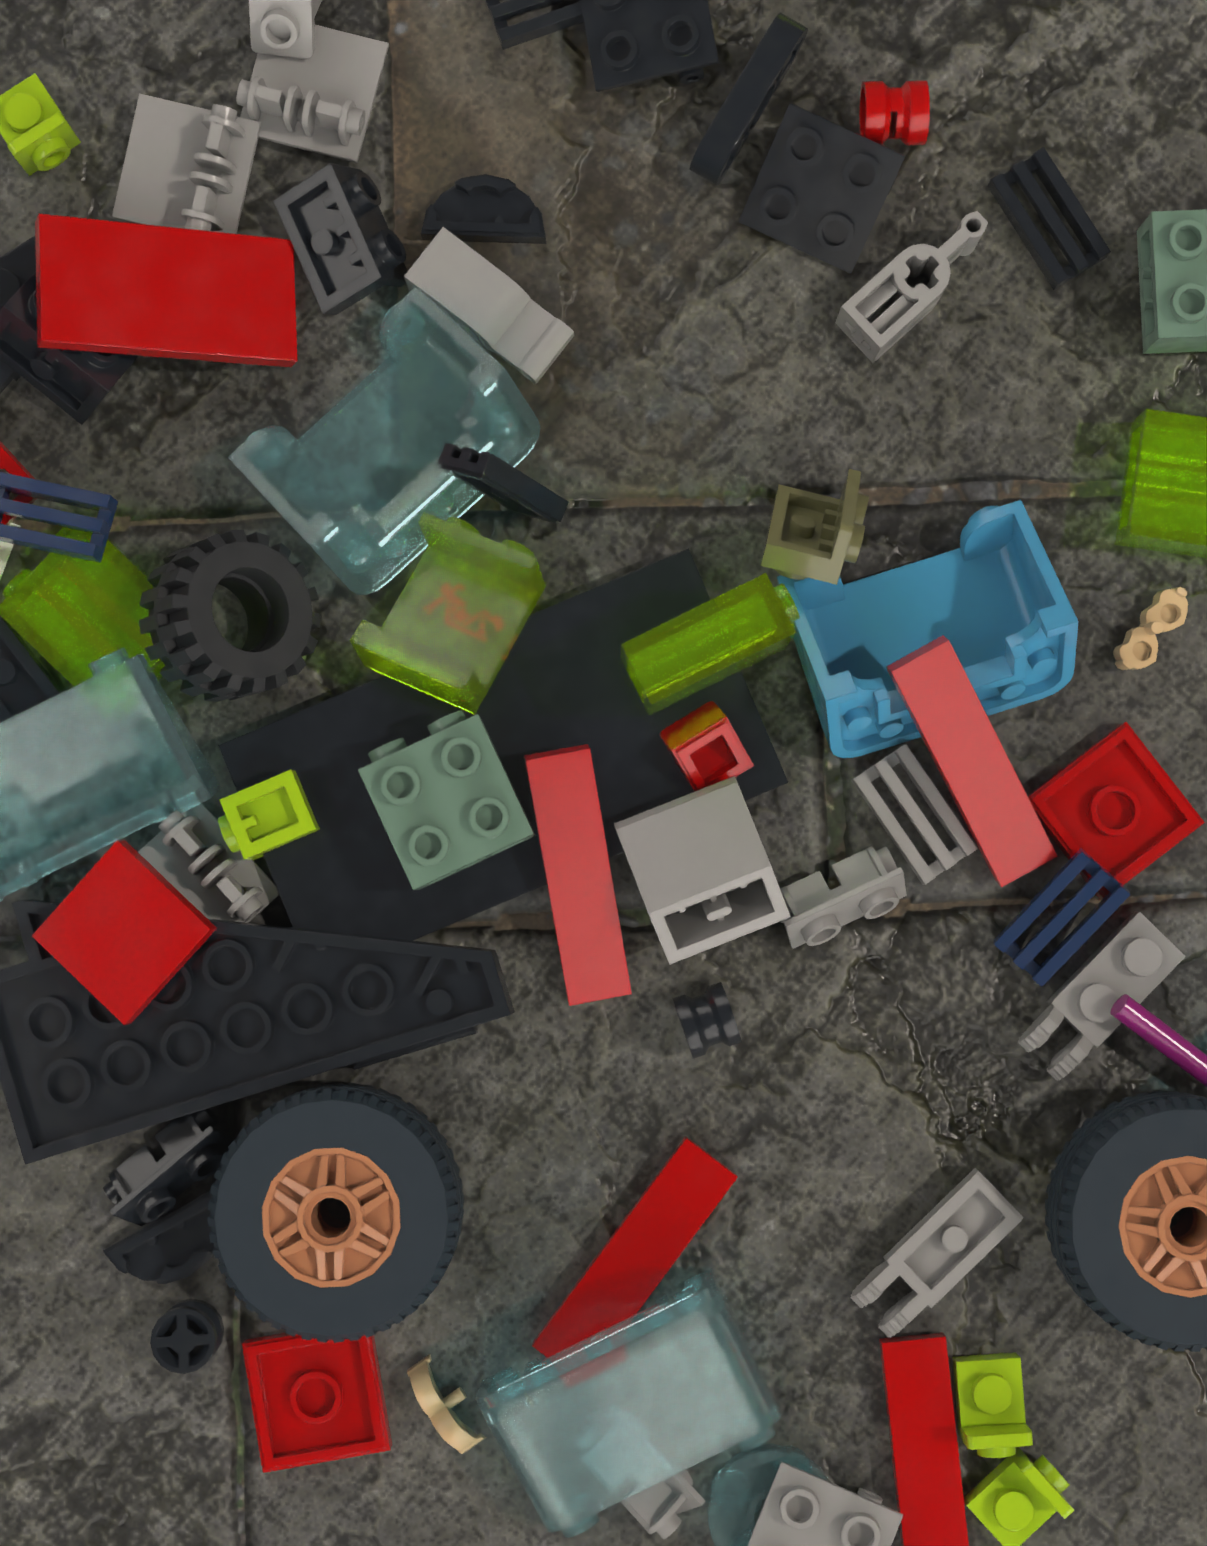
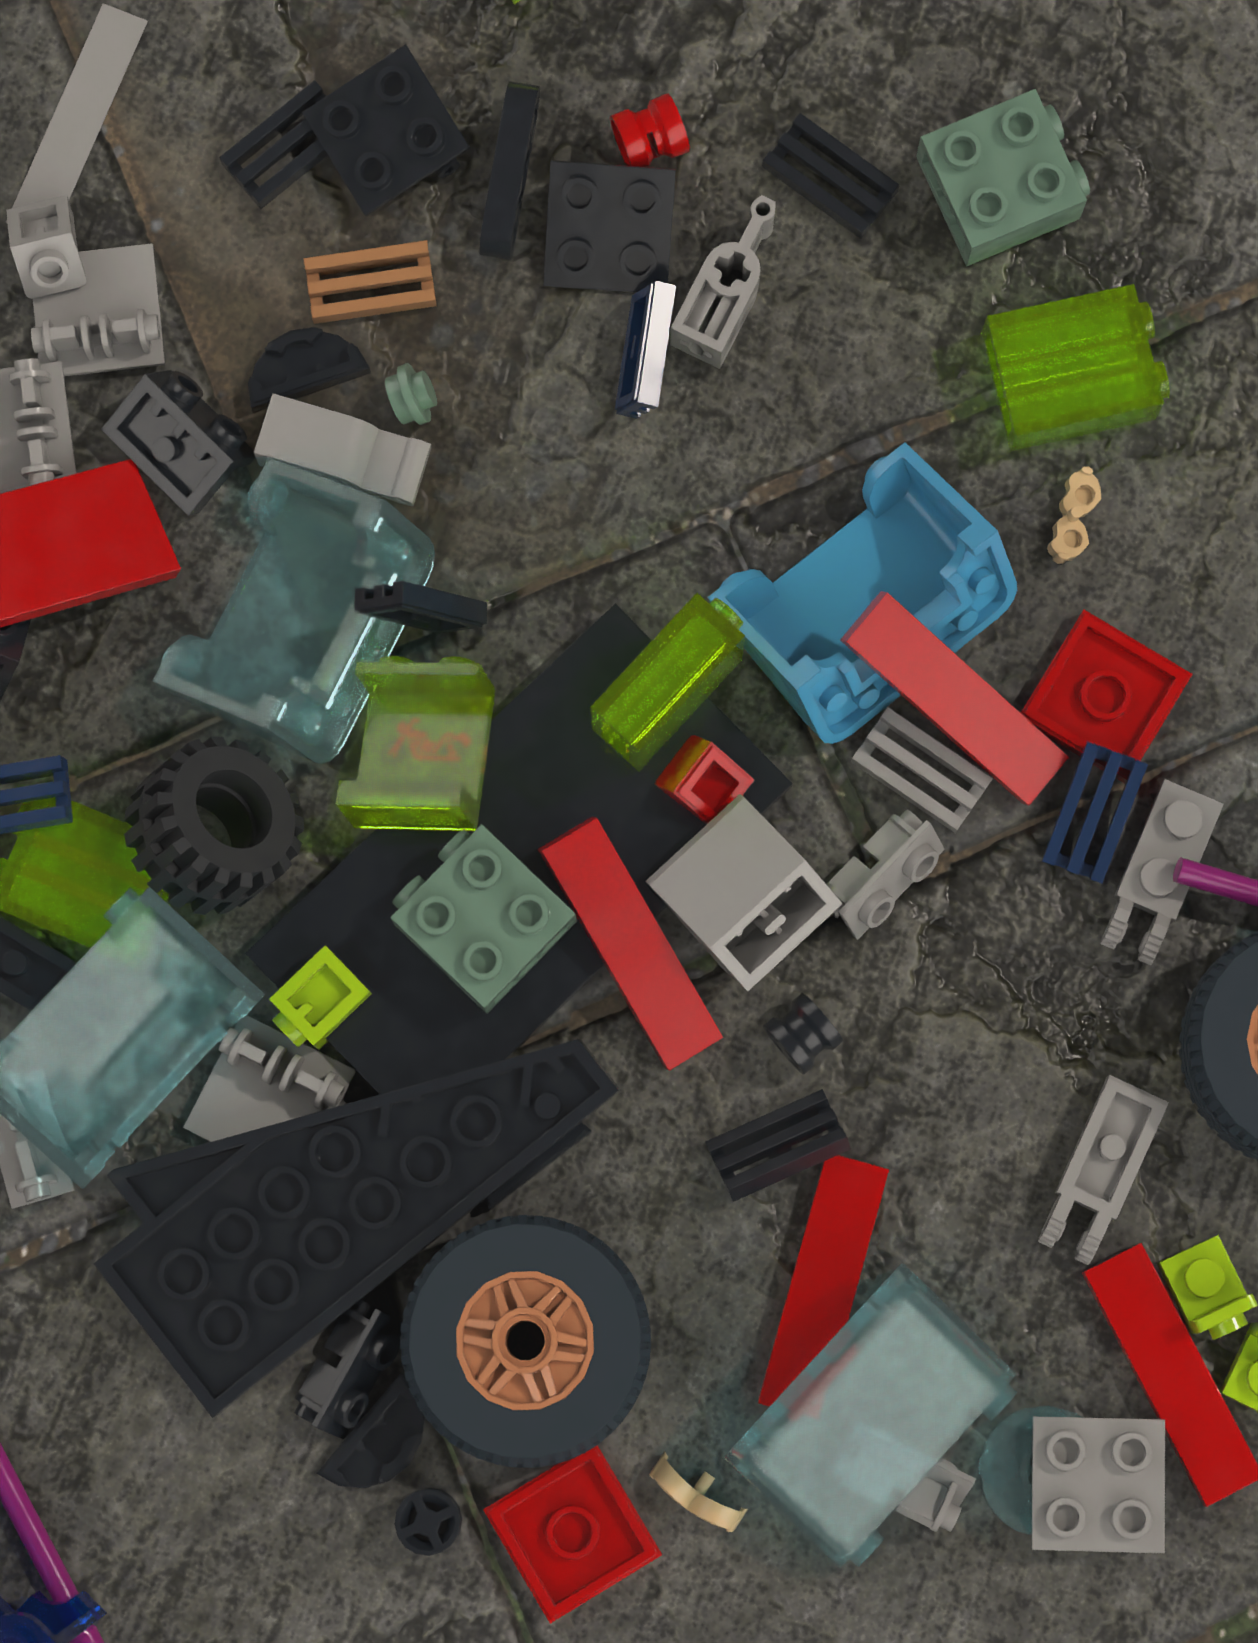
camera: 25 degrees left, 5 degrees down
(124, 932) = (226, 1156): red tile -> none
(573, 278) = (411, 395): none -> sand green plate
(580, 133) = (368, 259): none -> medium nougat tile
(643, 1104) = (773, 1138): none -> black tile
(810, 318) = (645, 349): none -> tile
(815, 532) = (727, 543): olive bracket -> none

